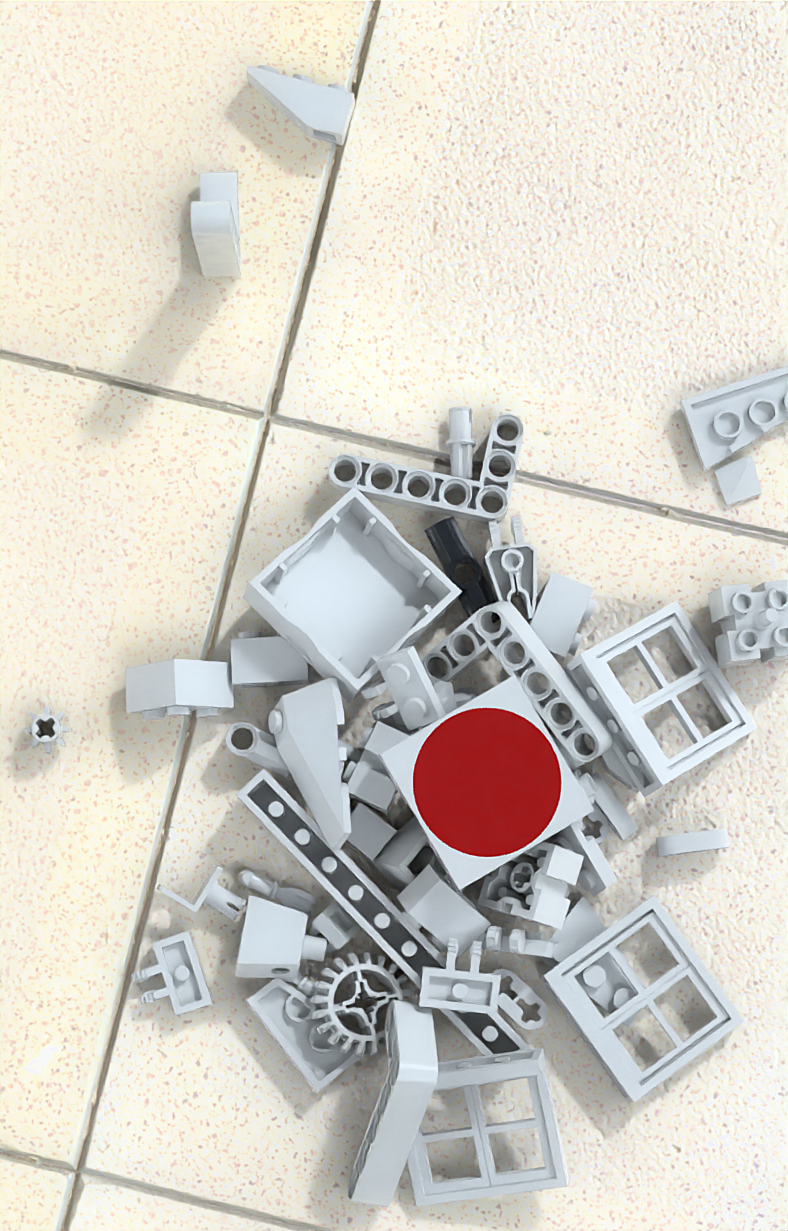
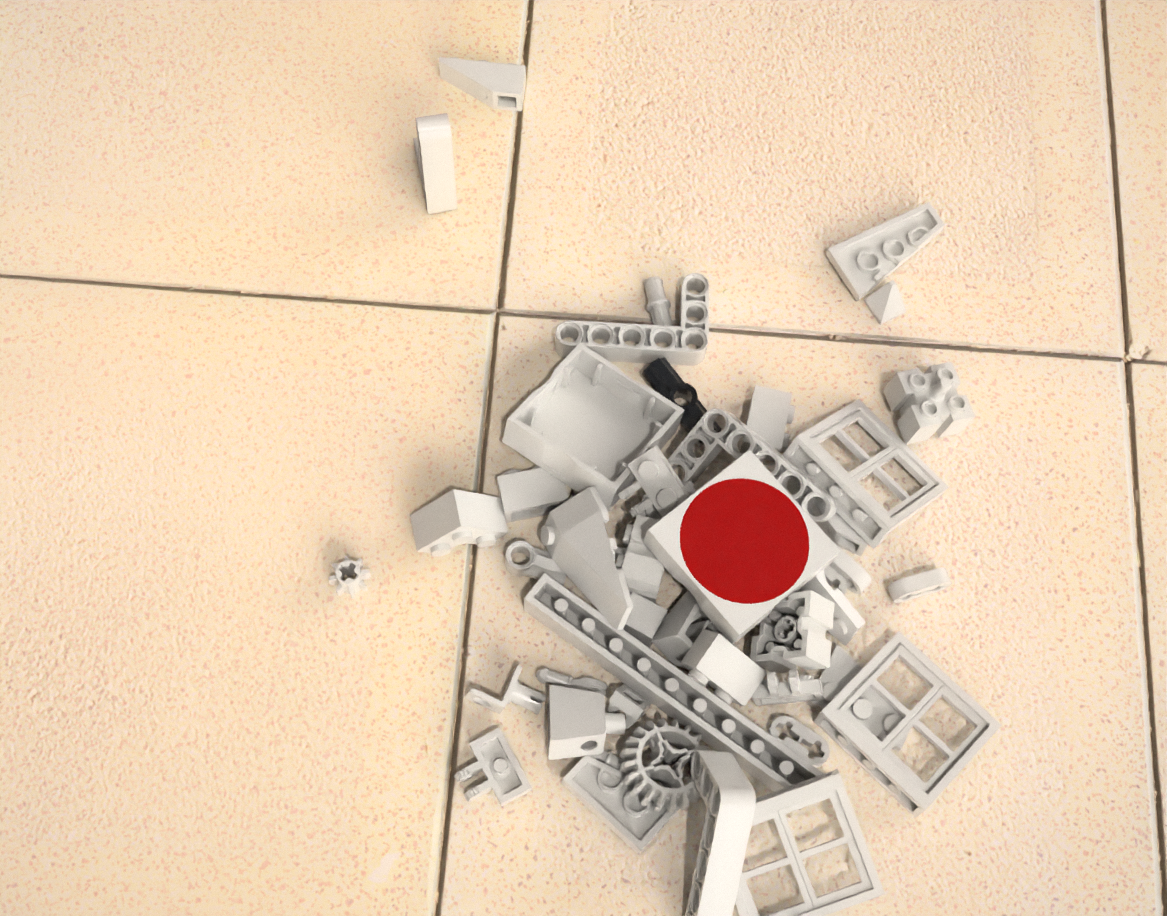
camera: 15 degrees left, 15 degrees down
(460, 989) = (753, 729): white hinge -> none
(512, 566) = (721, 387): white hinge -> none

